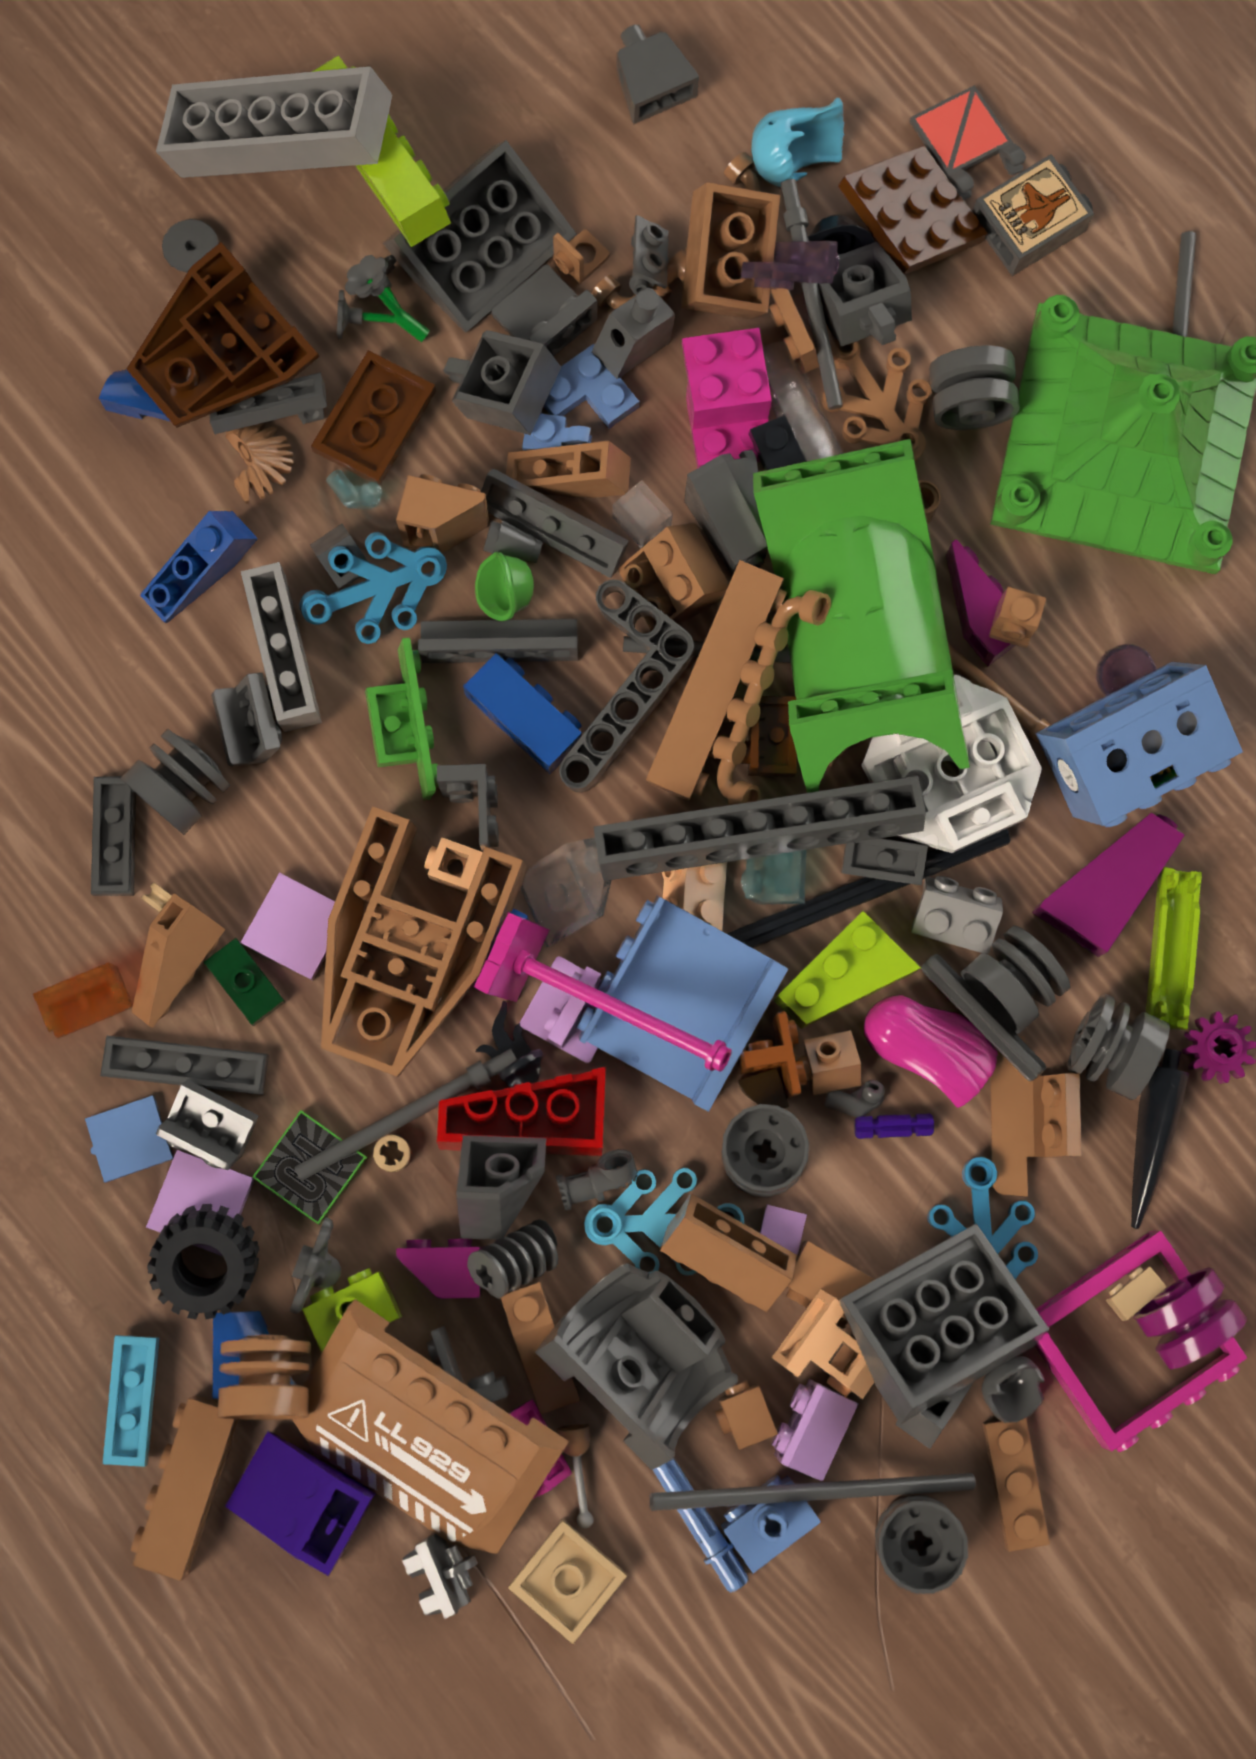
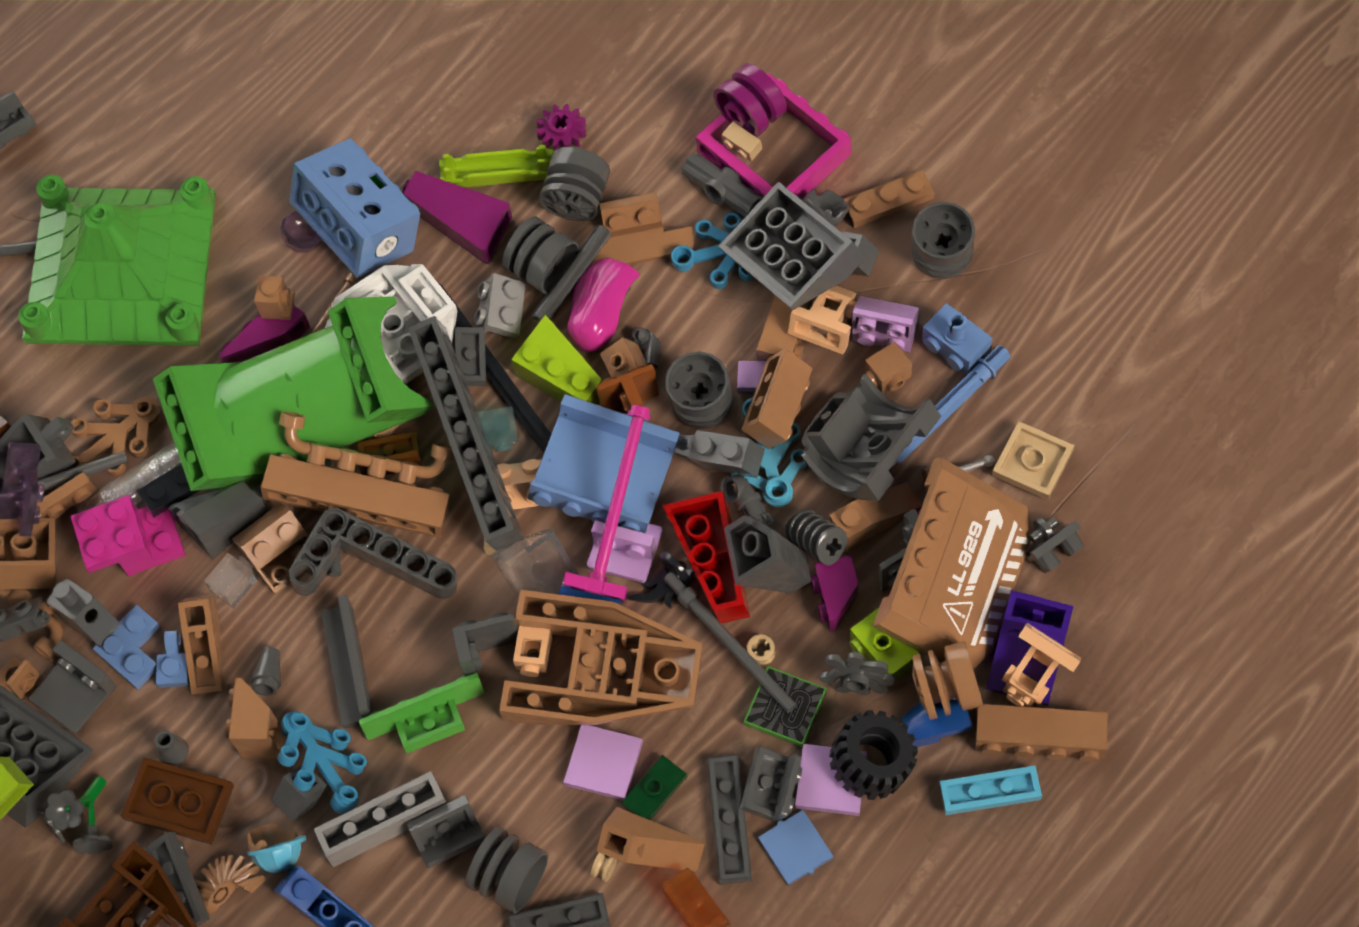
camera: 90 degrees left, 15 degrees down
(237, 1484) = (1021, 688): none -> light nougat tile
(282, 517) = (274, 848): none -> piece
(352, 496) = (245, 802): clear light blue arm -> none
(439, 418) = (171, 748): none -> dark grey cone
(503, 586) = (304, 667): bright green helmet -> none
(504, 381) = (119, 710): dark grey hinge -> none
(523, 712) = (403, 630): blue brick -> none
(553, 523) = (247, 640): dark grey plate -> none
(666, 1160) = (721, 452): none -> dark grey hinge
(764, 1089) = (658, 406): dark brown tile -> none
(811, 1491) = (927, 312): dark grey piece -> none
(894, 1126) = (662, 319): dark purple axle -> none
(974, 388) = (98, 364): dark grey wheel -> none
(1080, 1252) = (720, 184): none -> dark grey piece
(1156, 1127) = (633, 157): black piece -> none

